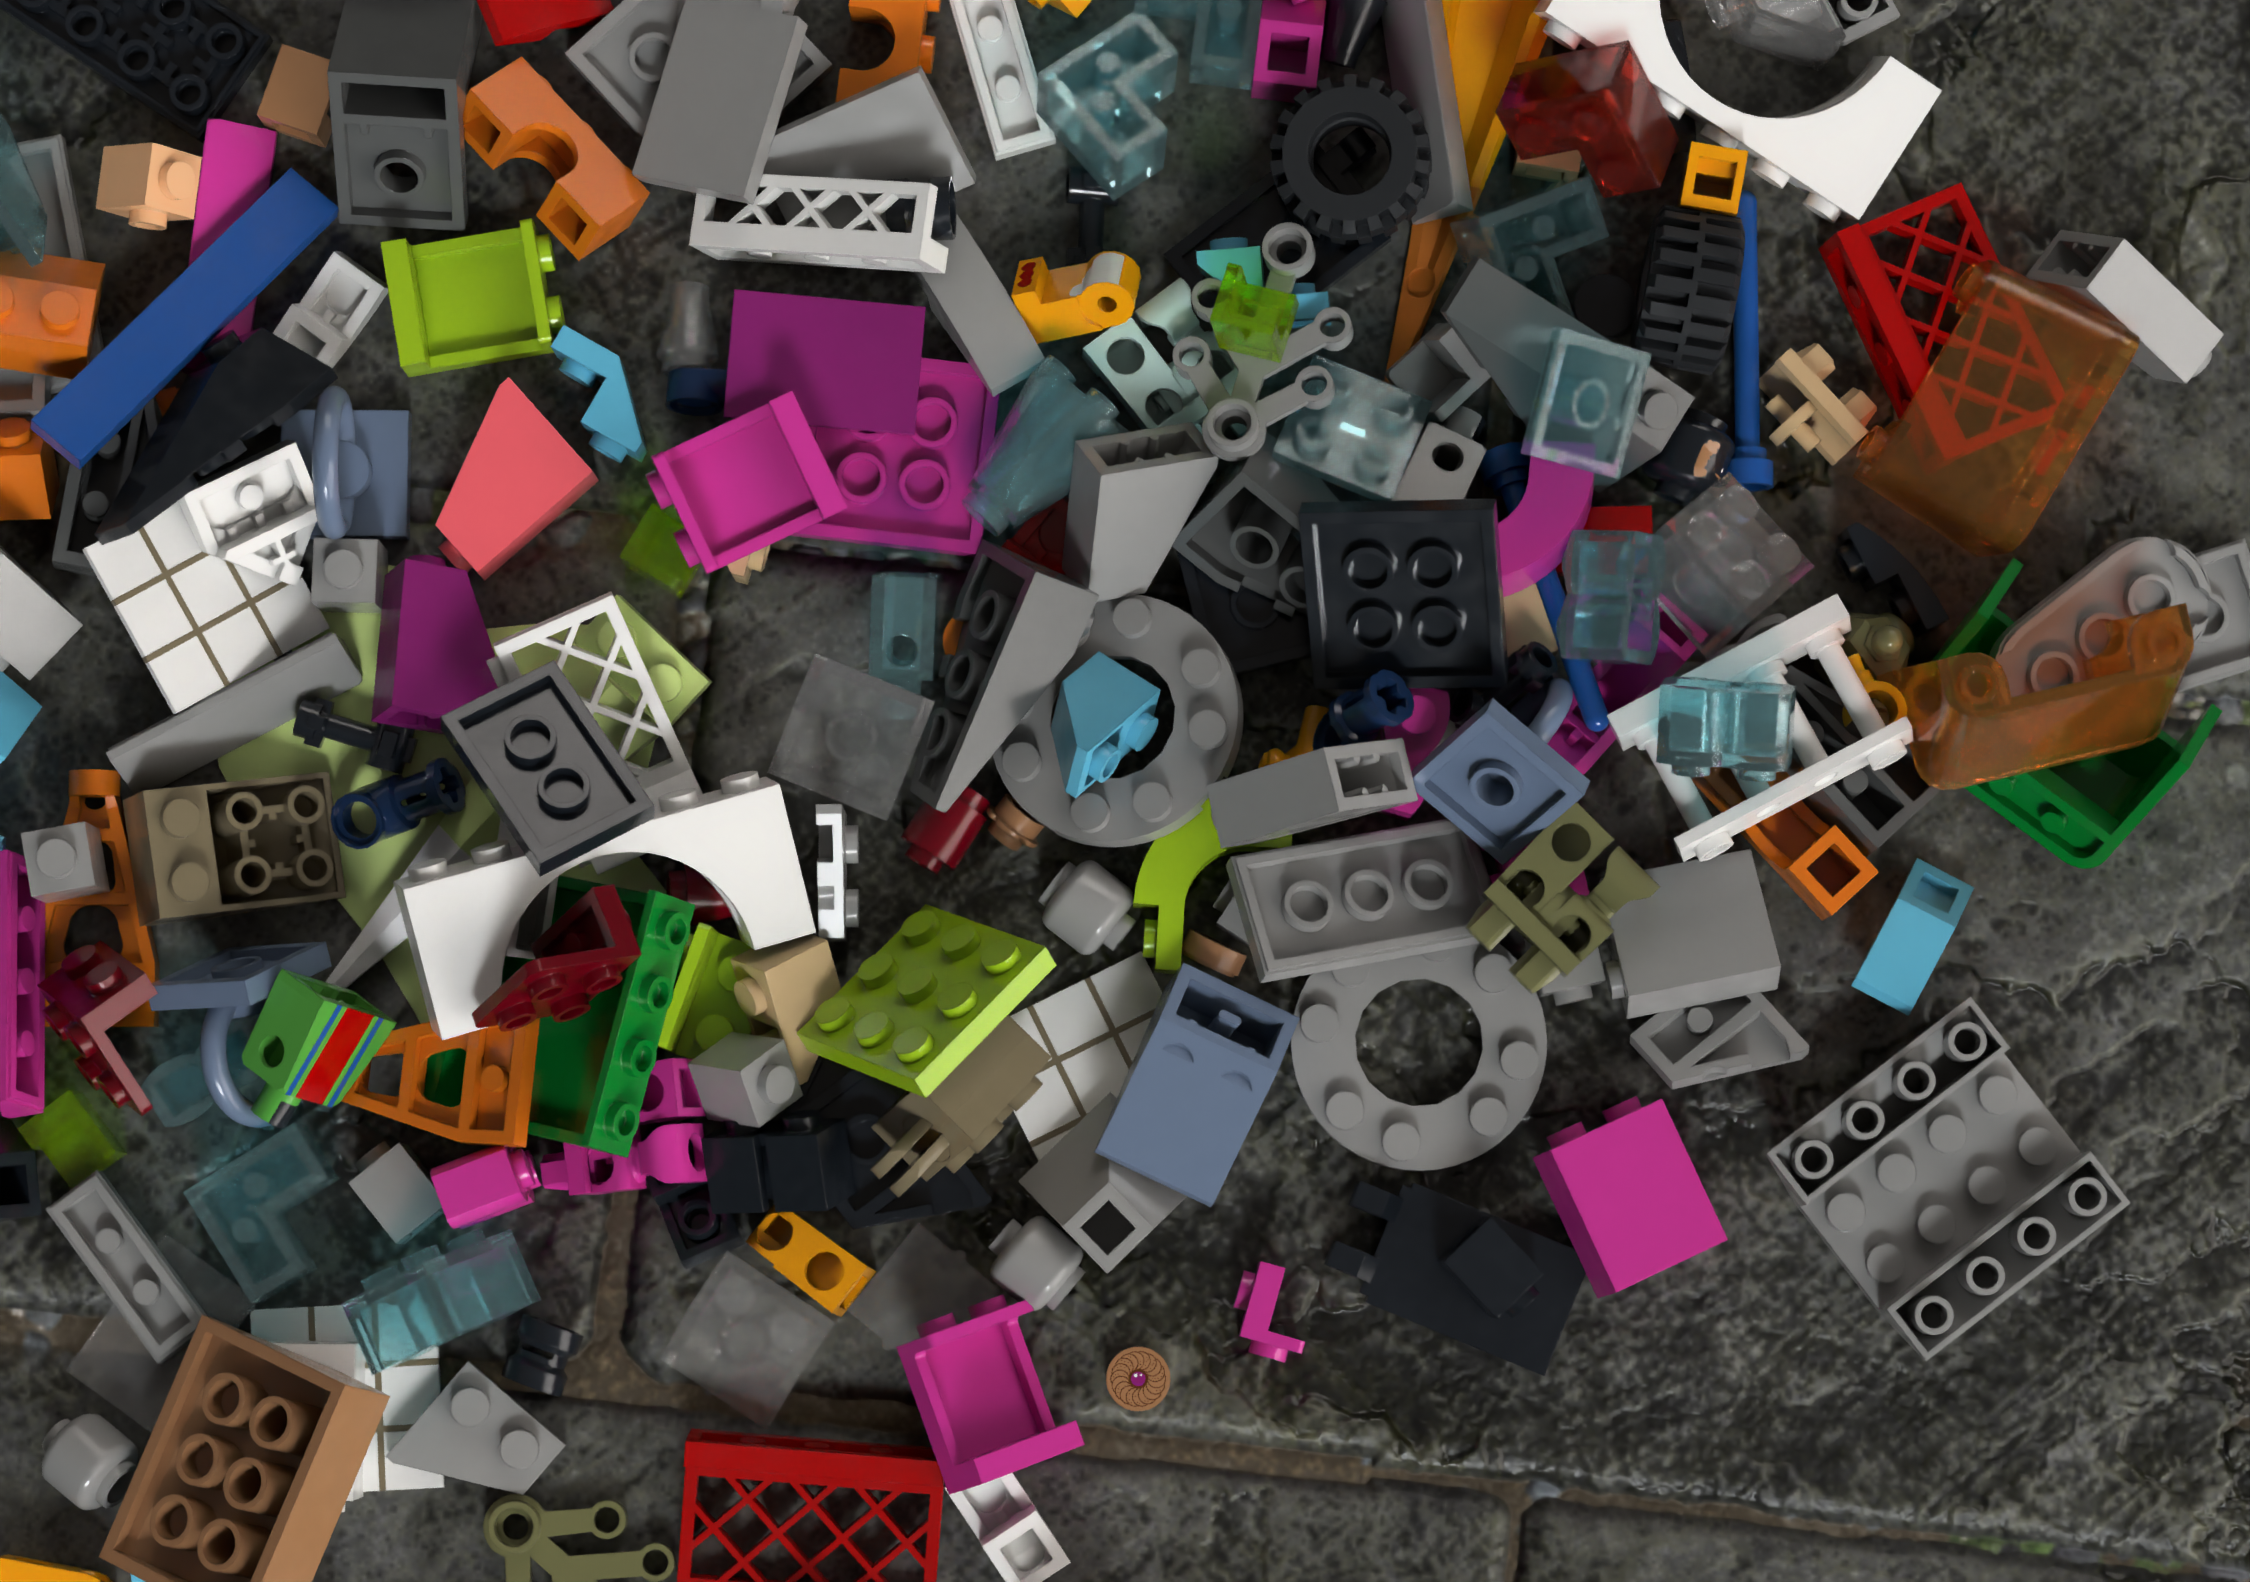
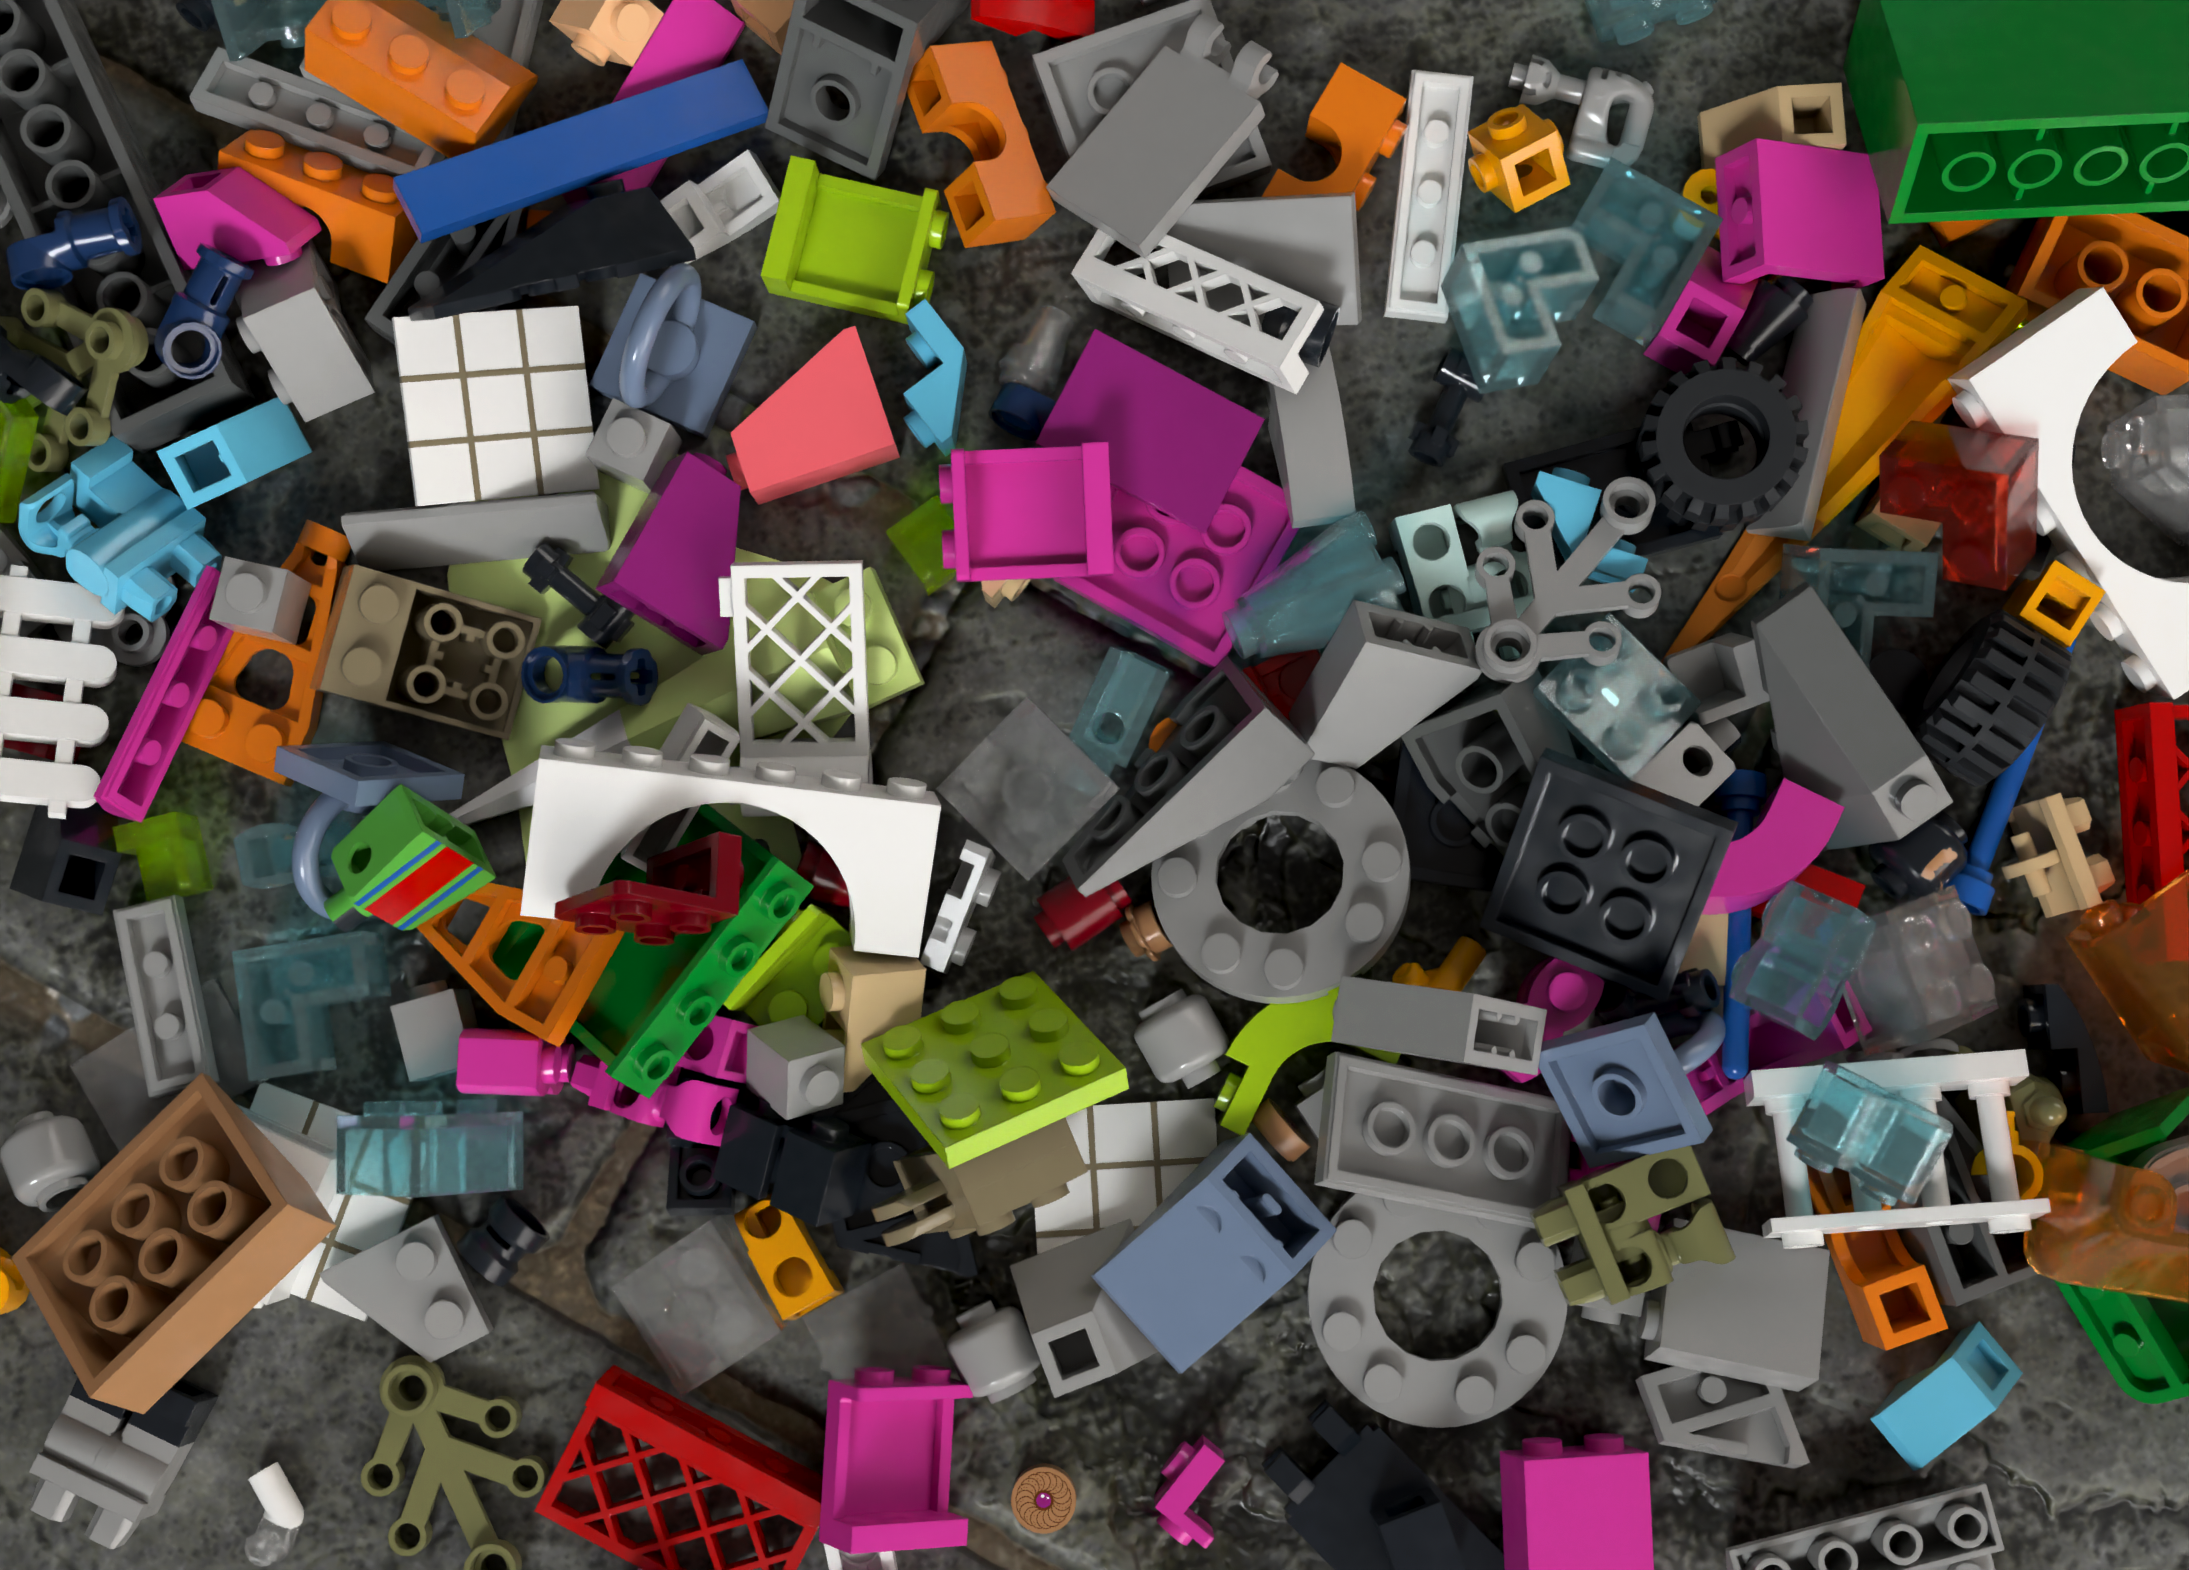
camera: 30 degrees right, 0 degrees up
(84, 1001) = (224, 734): dark red bracket -> none
(256, 512) = (568, 353): white slope -> none
(547, 768) = (727, 700): plate -> none
(1076, 297) = (1409, 468): light orange leg -> none
(1099, 720) = (1266, 869): medium azure slope -> none
(1252, 317) = (1570, 553): clear neon green panel -> none
(1361, 714) = (1517, 970): dark blue connector -> none
(1585, 403) = (1855, 764): clear light blue slope -> none

